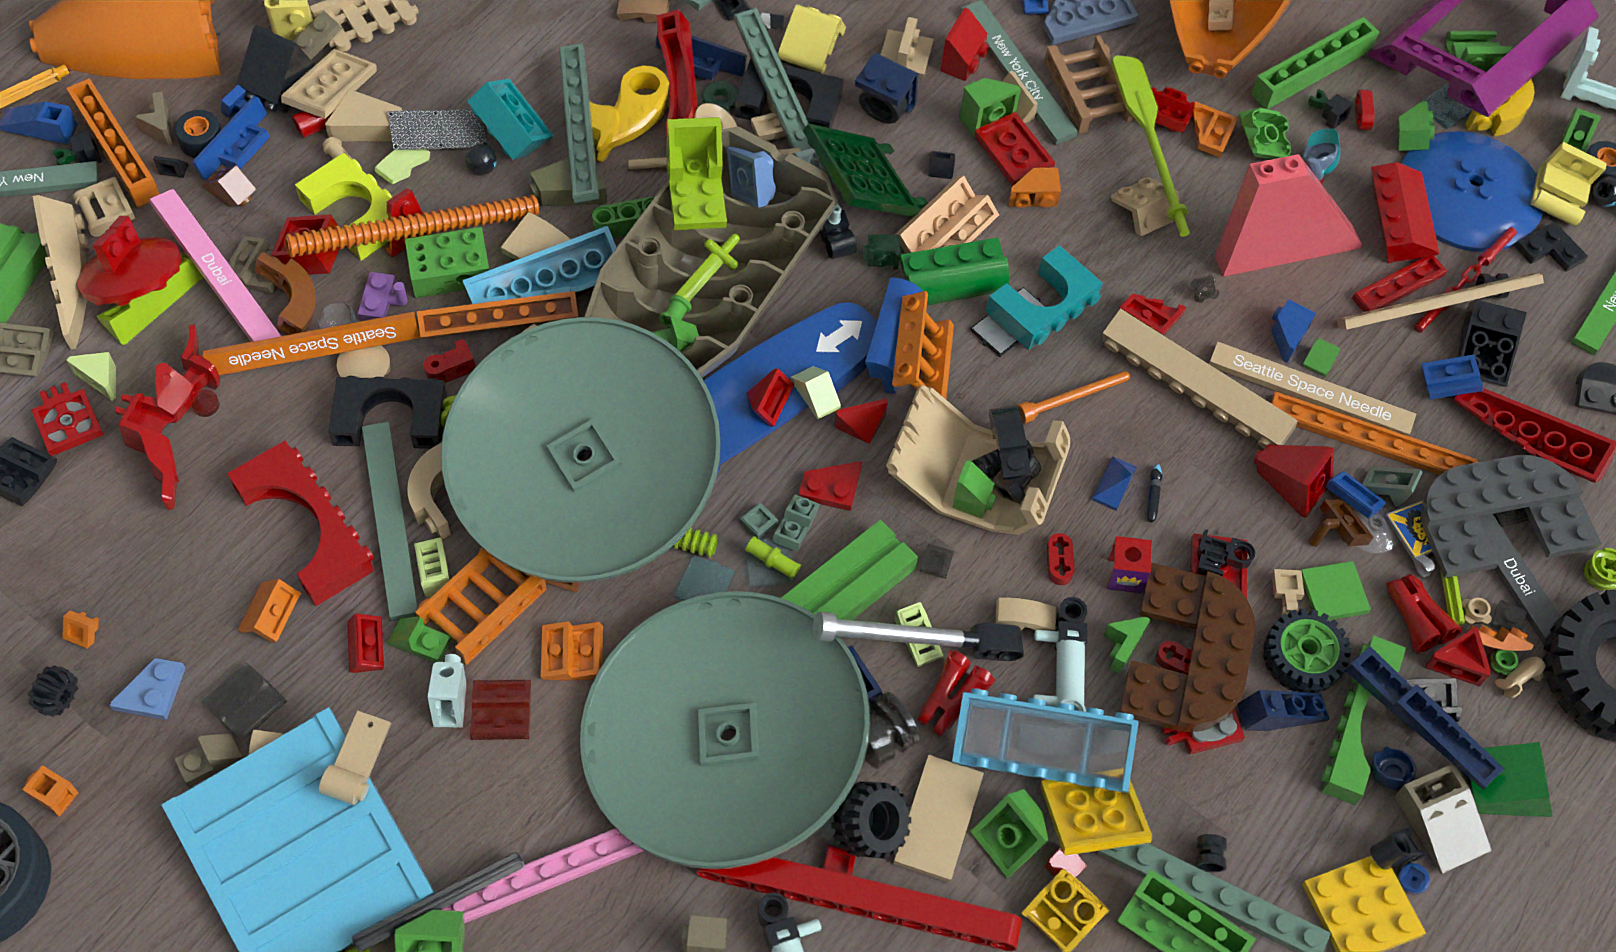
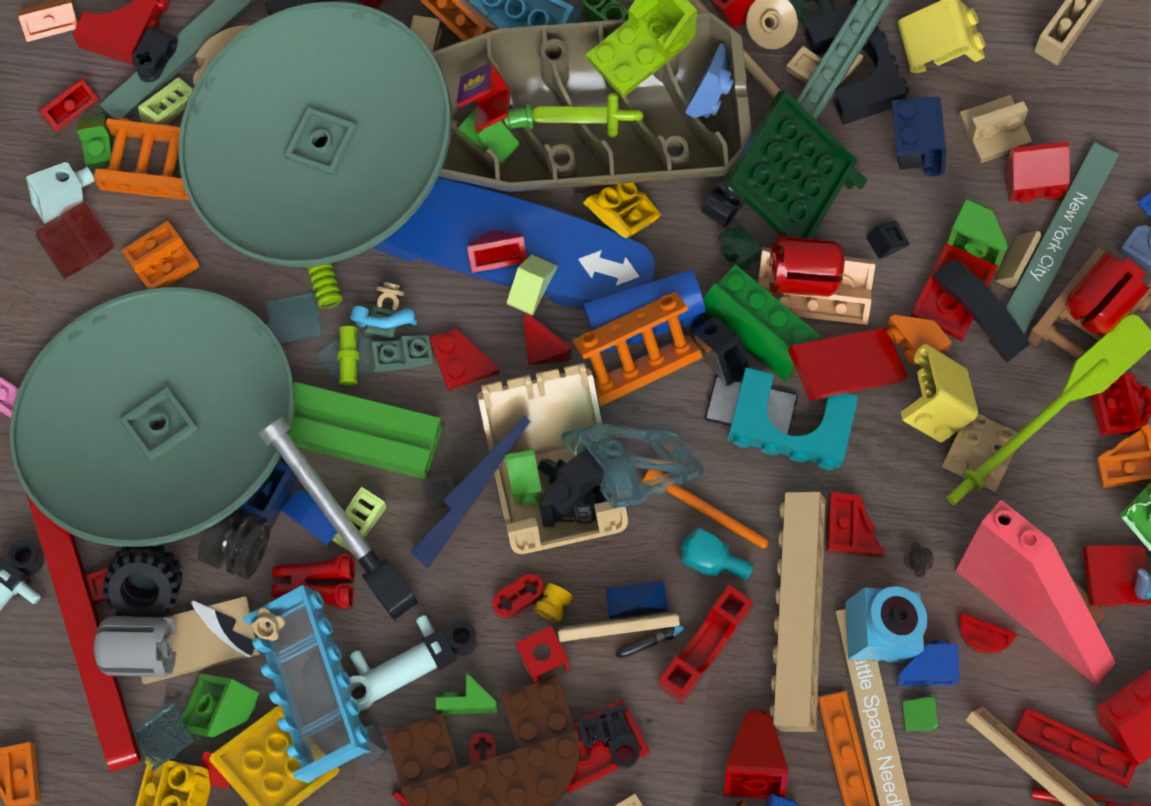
camera: 65 degrees right, 10 degrees up
(384, 544) = (154, 54): none -> black piece
(651, 312) = (491, 103): none -> red piece
(739, 497) = (389, 290): none -> tan plate
(768, 505) = (402, 317): none -> medium azure piece
(794, 302) = (623, 208): none -> yellow slope
(896, 662) = (306, 513): none -> blue slope
(927, 856) = (135, 646): none -> light grey cylinder
(938, 212) = (806, 266): none -> red cylinder
(944, 787) = (223, 627): none -> sticker
(958, 303) = (714, 340): none -> black torso
(960, 535) = (465, 495): none -> dark blue slope
(980, 744) = (262, 629): none -> tan plate
(1013, 887) = (163, 737): none -> clear light blue piece
(1014, 398) = (619, 476): none -> clear light blue windscreen
(1025, 614) = (436, 597): tan slope -> none
(1029, 237) = (847, 363): none -> red tile
(1041, 133) = (983, 307): none -> black slope
(1084, 536) = (552, 606): none -> yellow wheel
(1092, 57) = (1107, 294): none -> red cylinder
(1110, 197) = (946, 396): none -> light yellow piece
(1115, 411) = (709, 555): none -> teal piece
(1139, 496) = (618, 626): none -> tan tile
(1174, 431) = (707, 644): none -> red arch
(1249, 329) = (885, 624): none -> medium azure piece
(1283, 288) = (984, 636): none -> red tile

